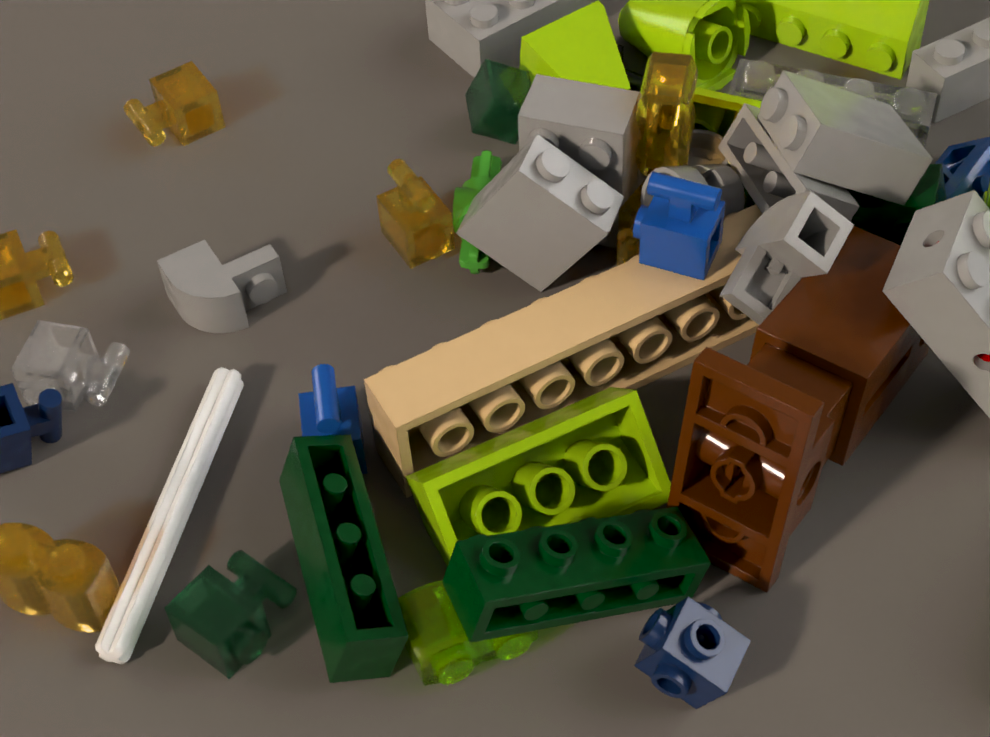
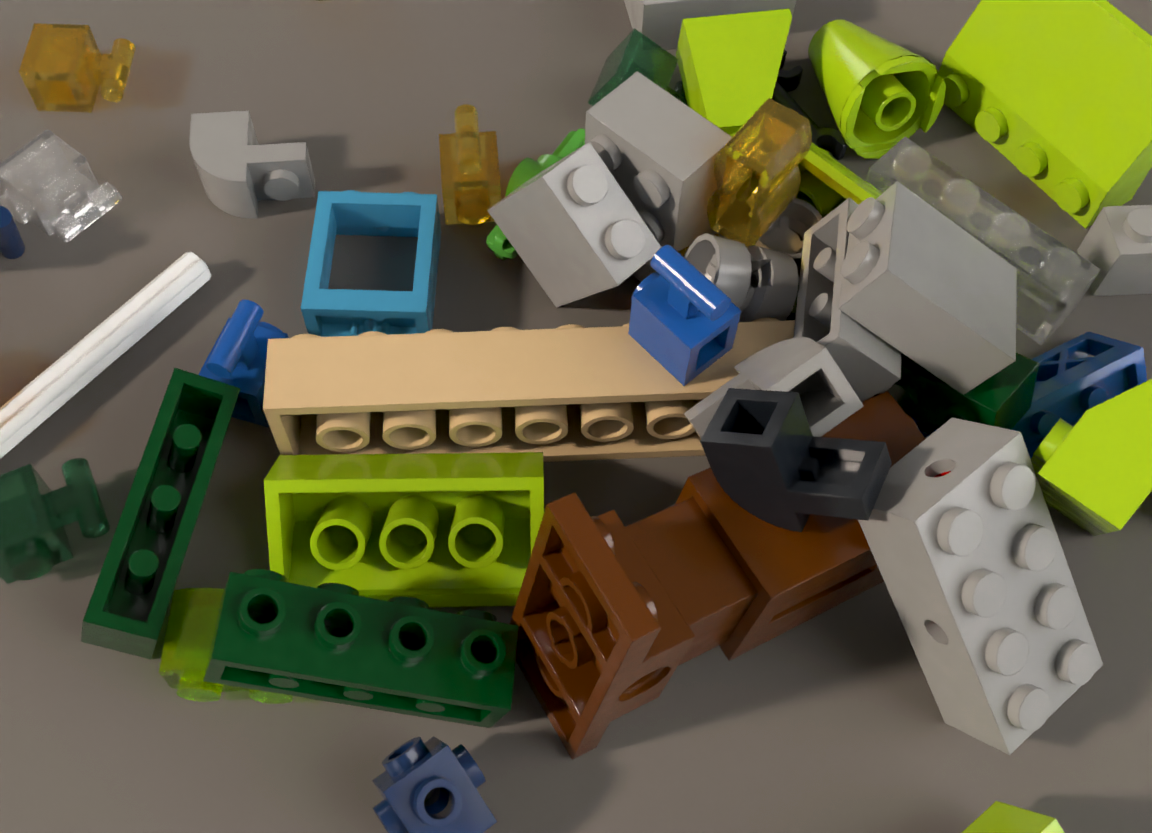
camera: 20 degrees right, 10 degrees up
(368, 276) = (371, 214): none -> dark azure window
(825, 291) = (782, 472): none -> black brick

